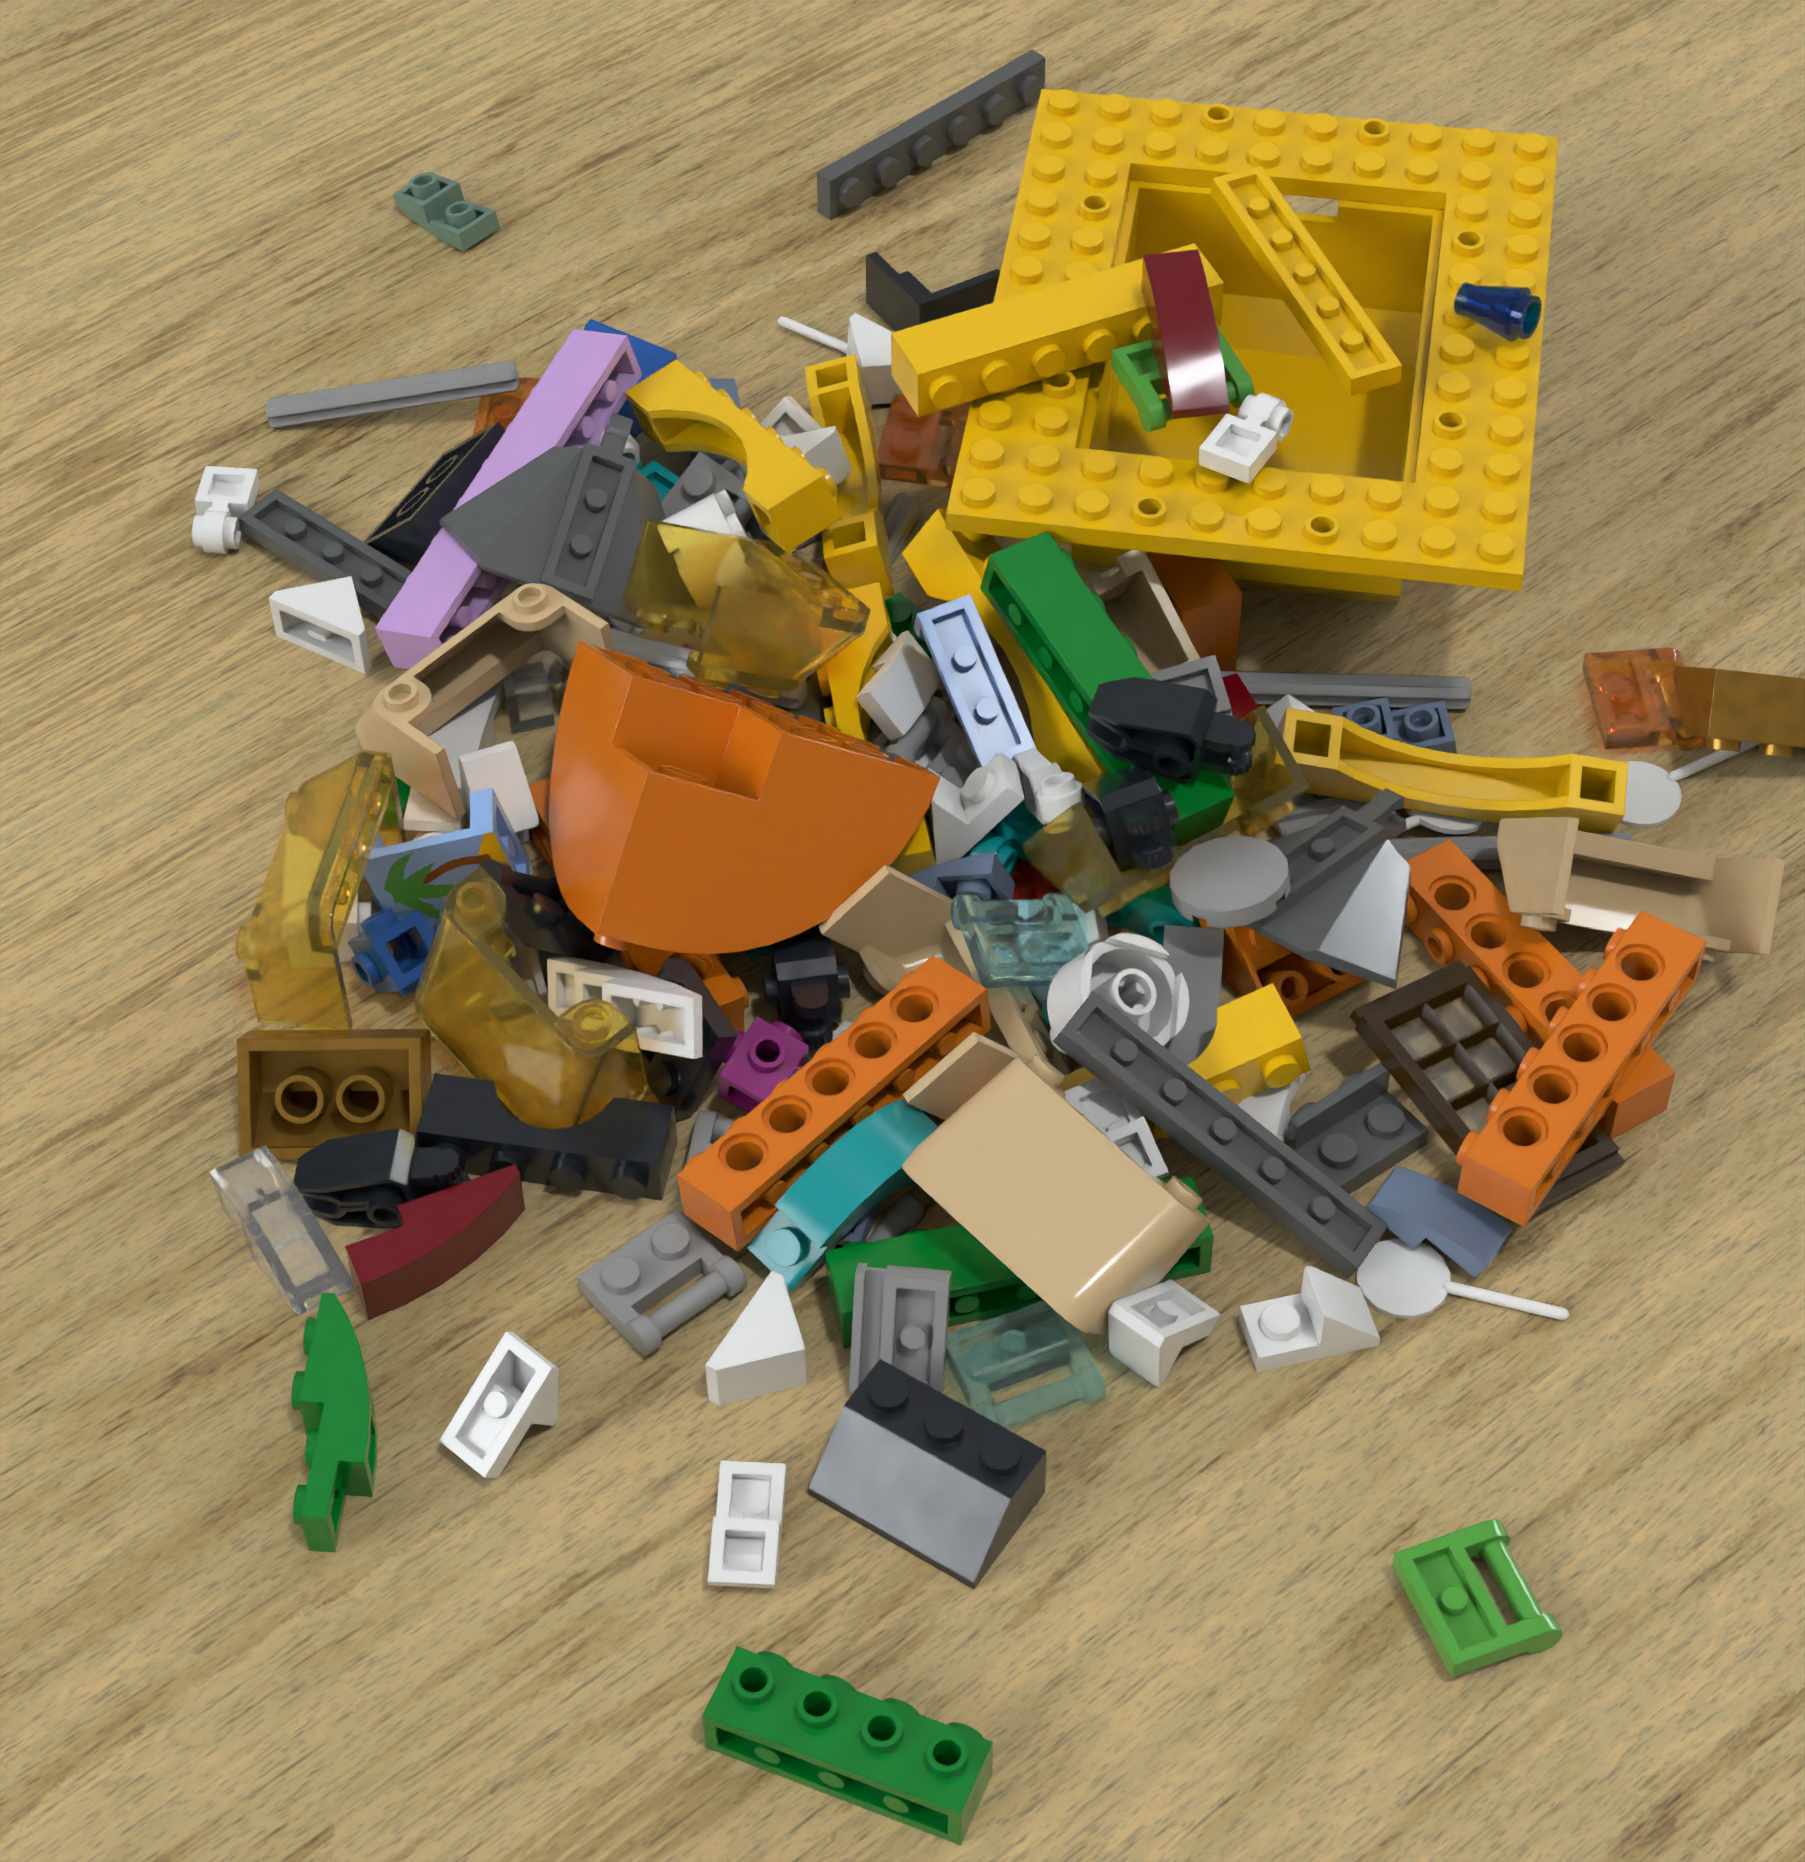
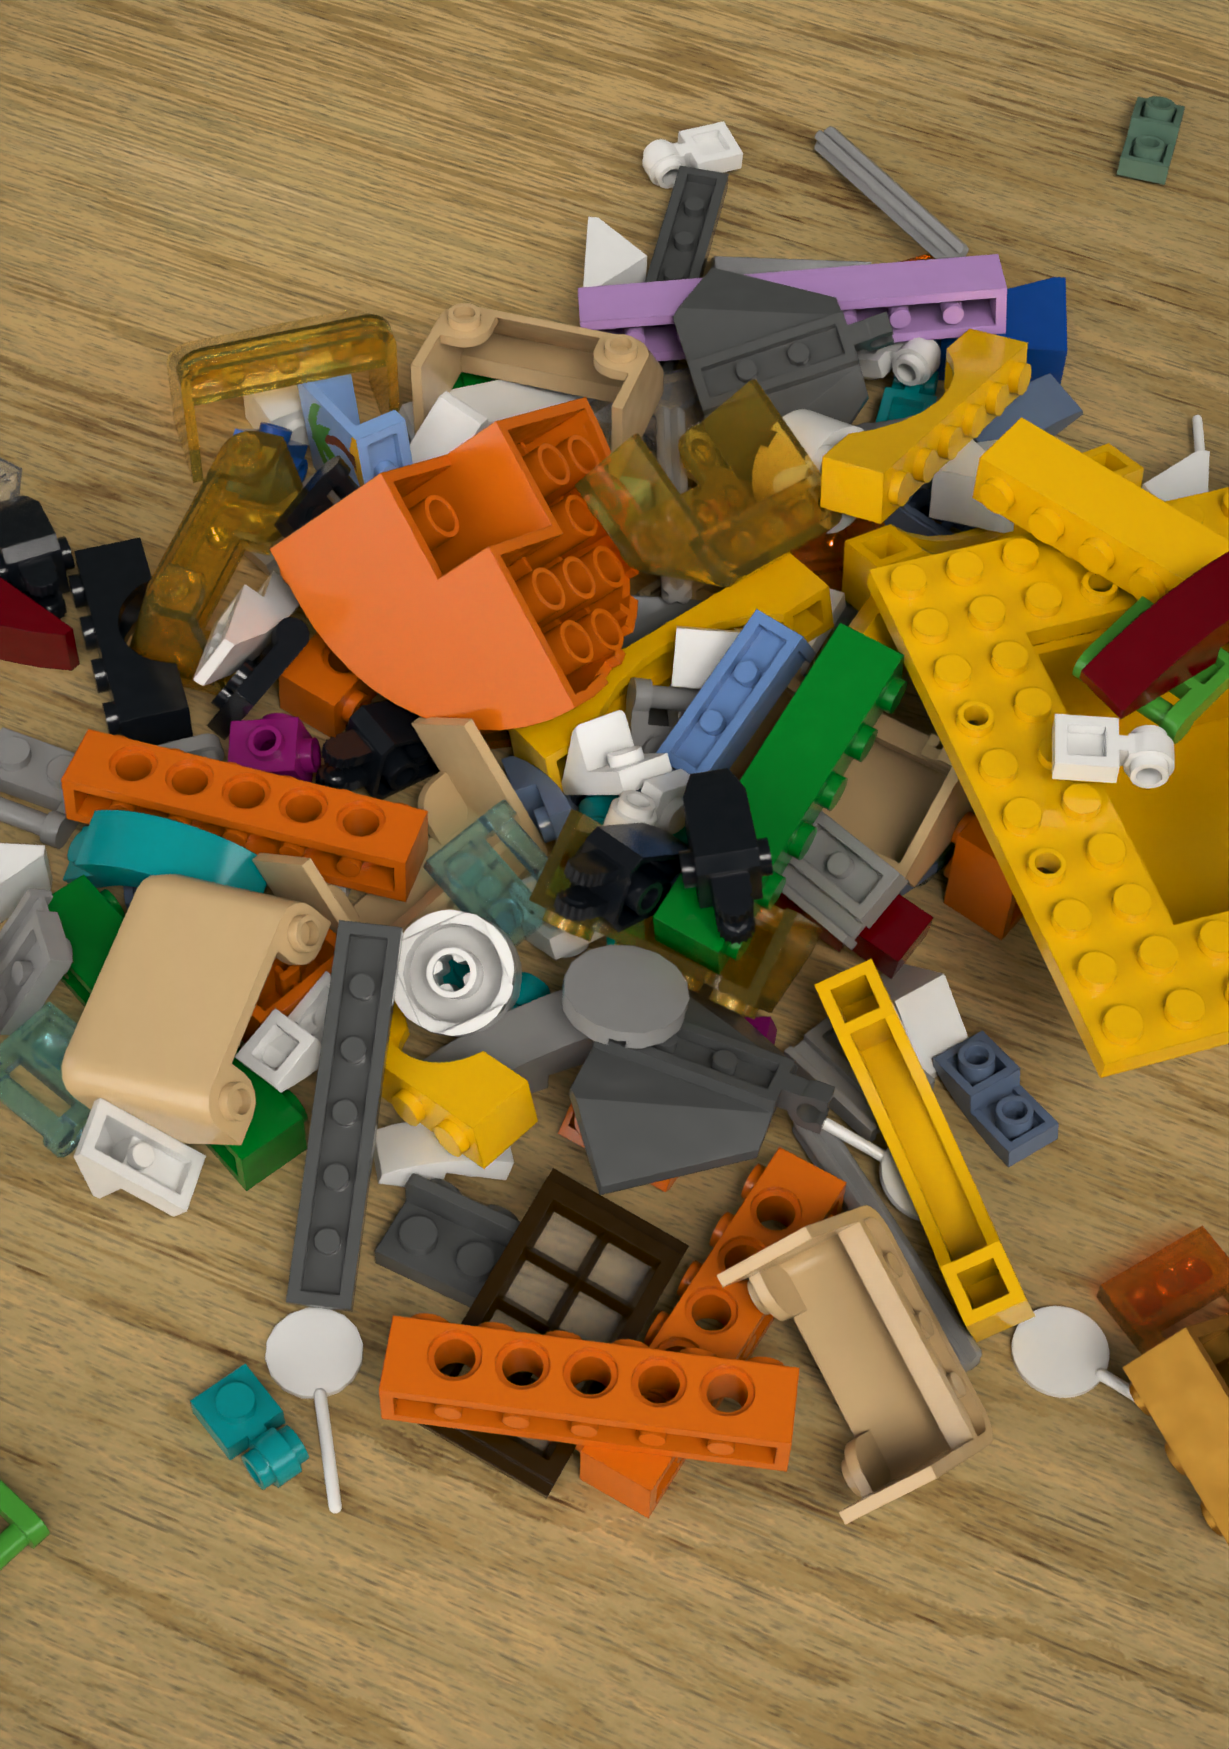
camera: 60 degrees right, 5 degrees up
(328, 1085) = (107, 480): pearl gold slope -> none
(1308, 1326) = (215, 1289): white slope -> none
(1349, 689) = (1019, 1029): light grey axle -> none
(1425, 1208) = (368, 1340): sand blue slope -> none
(1449, 1350) = (245, 1416): none -> teal plate

